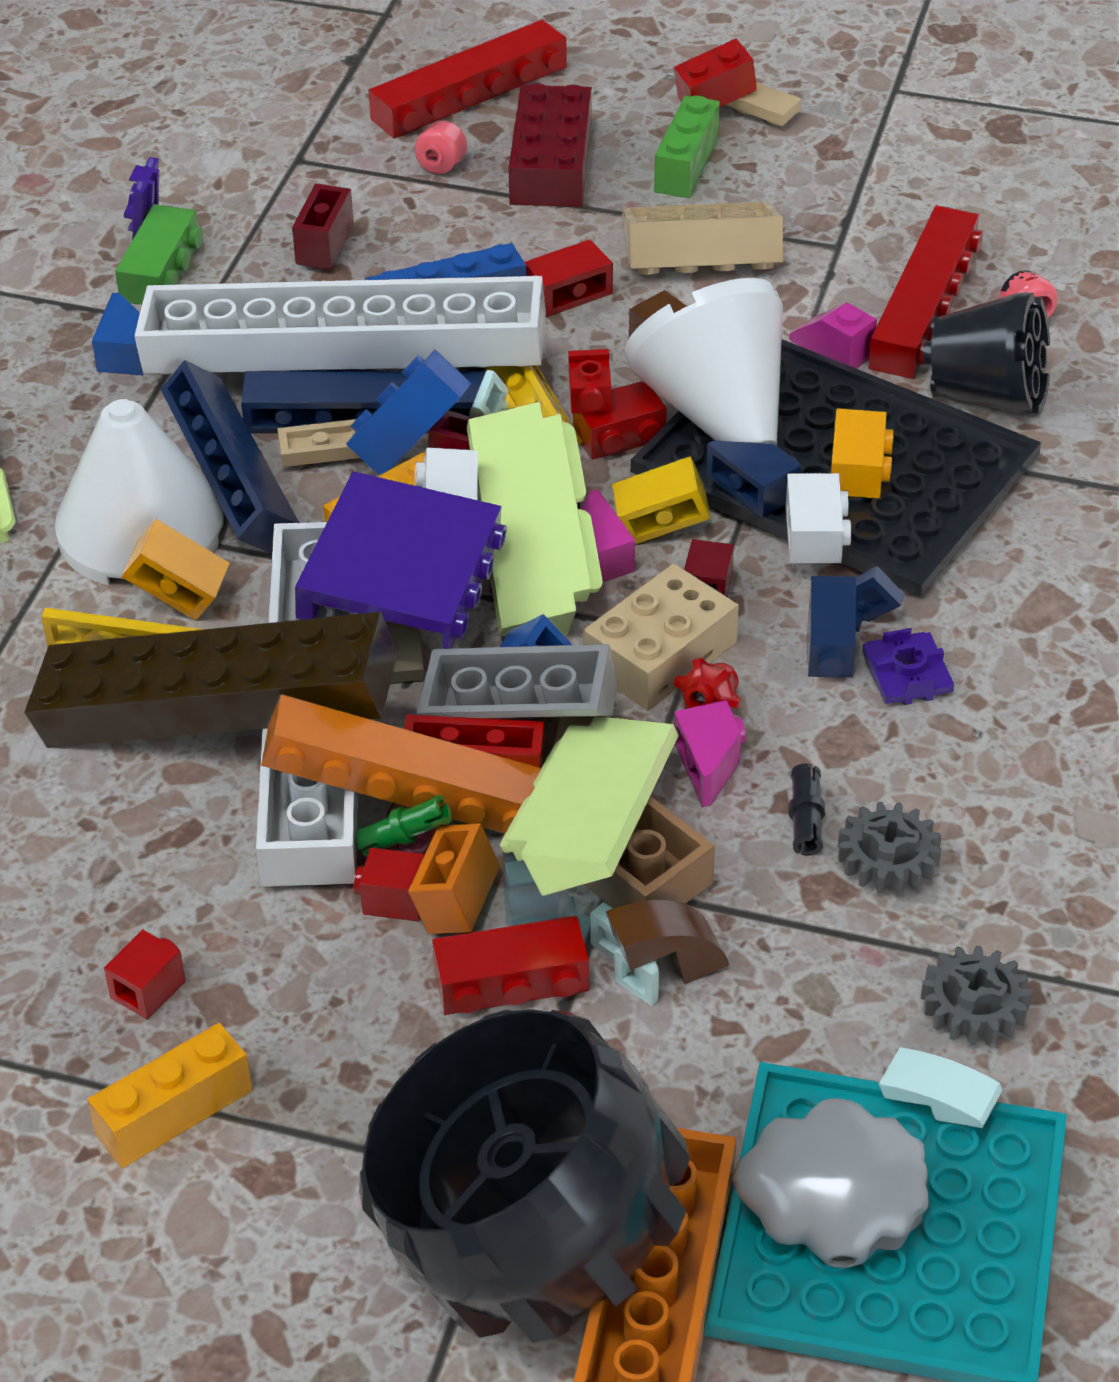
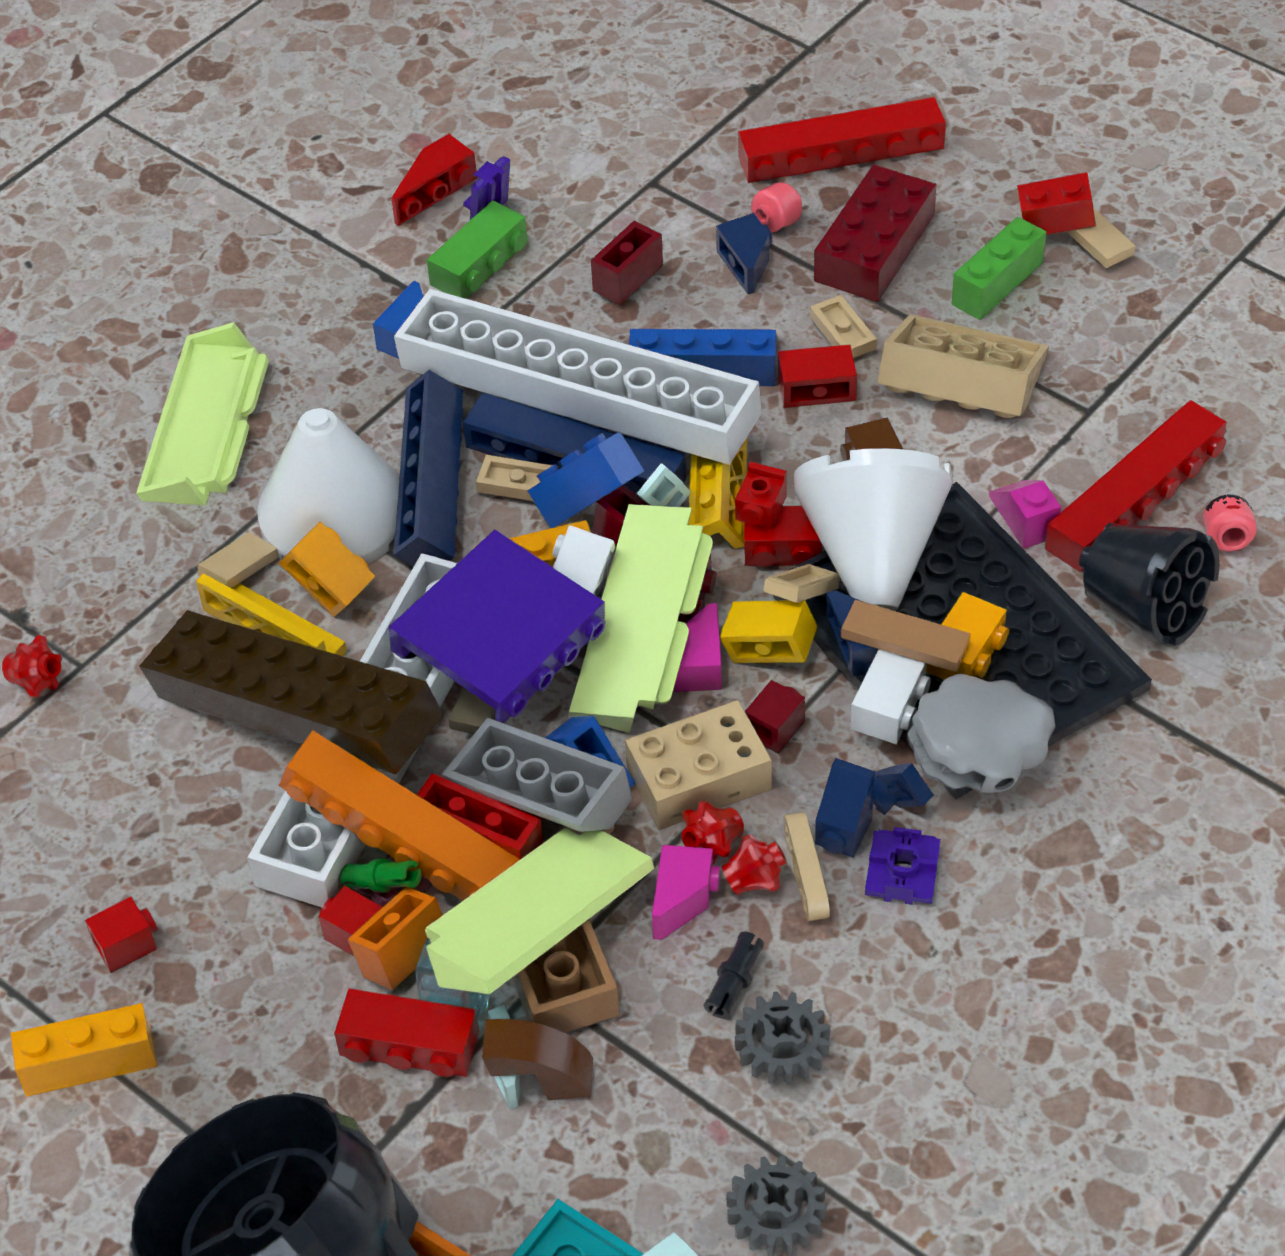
camera: 25 degrees right, 5 degrees up
(67, 590) = (238, 560): none -> tan tile
(74, 200) = (433, 176): none -> red slope
(428, 190) = (744, 249): none -> dark blue slope
(563, 229) = (843, 325): none -> tan plate
(675, 445) = (802, 583): none -> tan tile
(772, 706) = (755, 866): none -> red rock
(809, 457) = (905, 635): none -> medium nougat tile
(818, 693) = (806, 866): none -> tan beam
(923, 524) = (980, 733): none -> light grey piece

